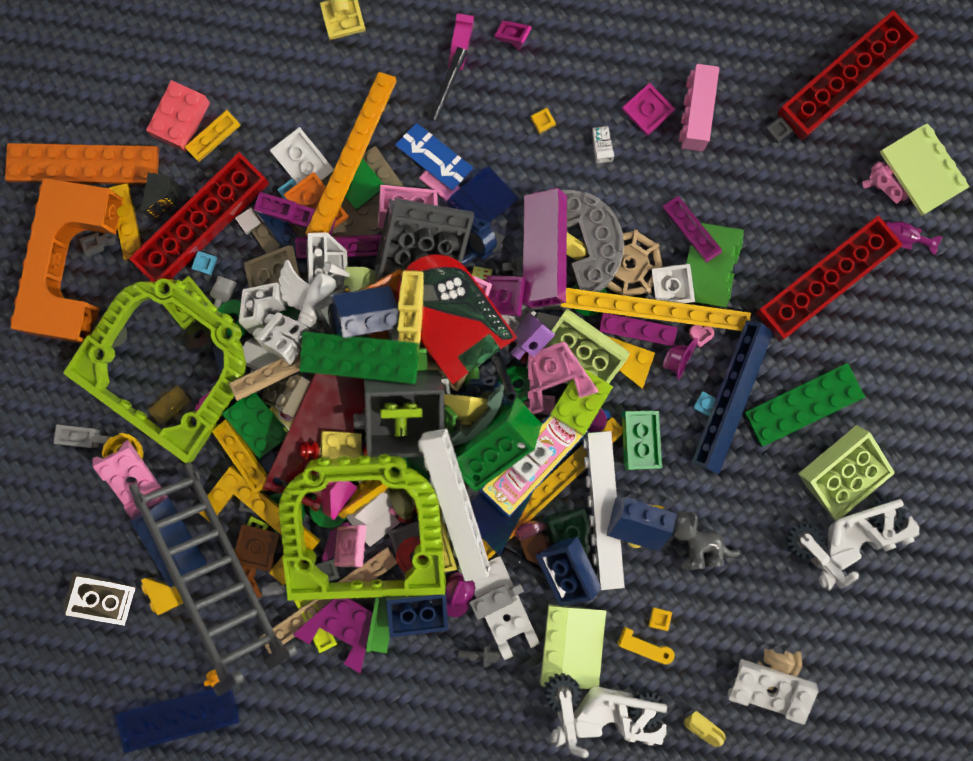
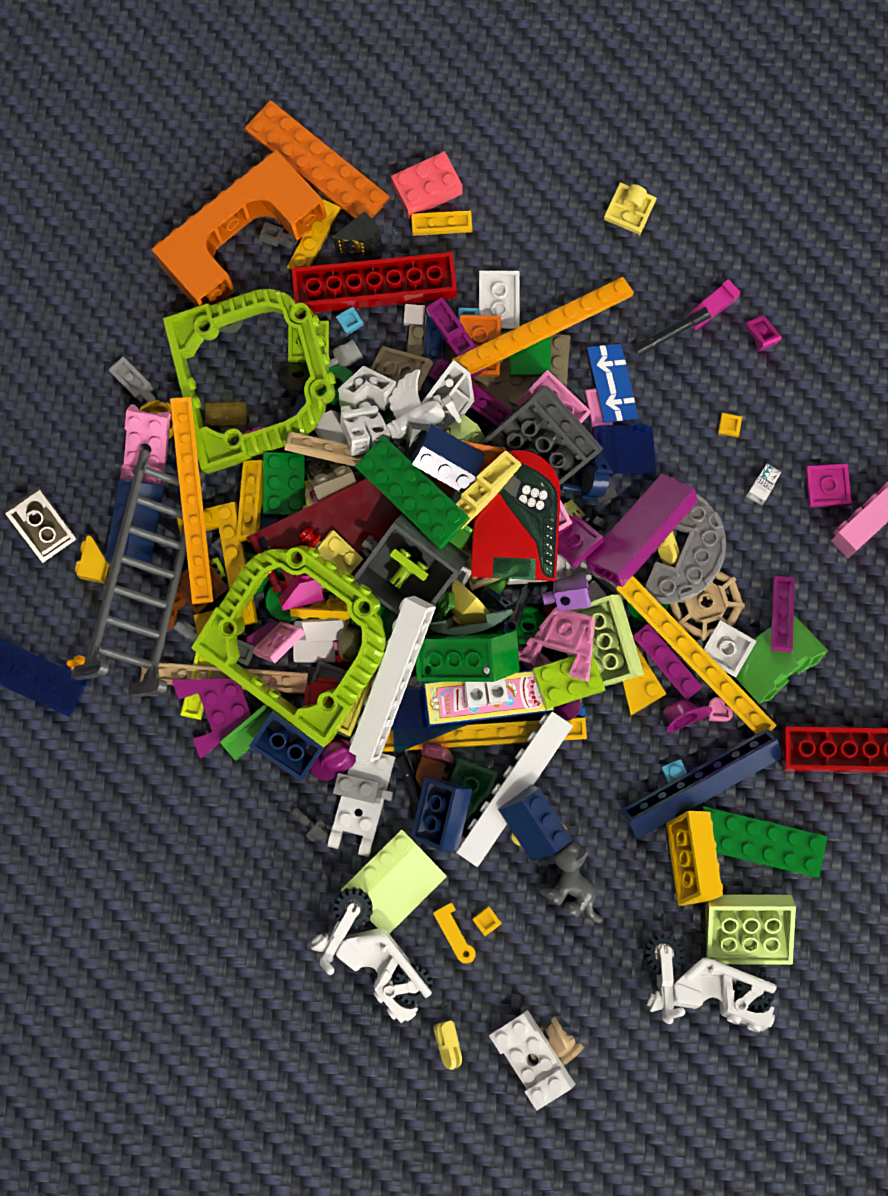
camera: 40 degrees right, 5 degrees down
(197, 492) = (191, 500): none -> light orange plate
(641, 440) = (594, 757): plate -> none
(771, 455) = (694, 858): none -> yellow slope

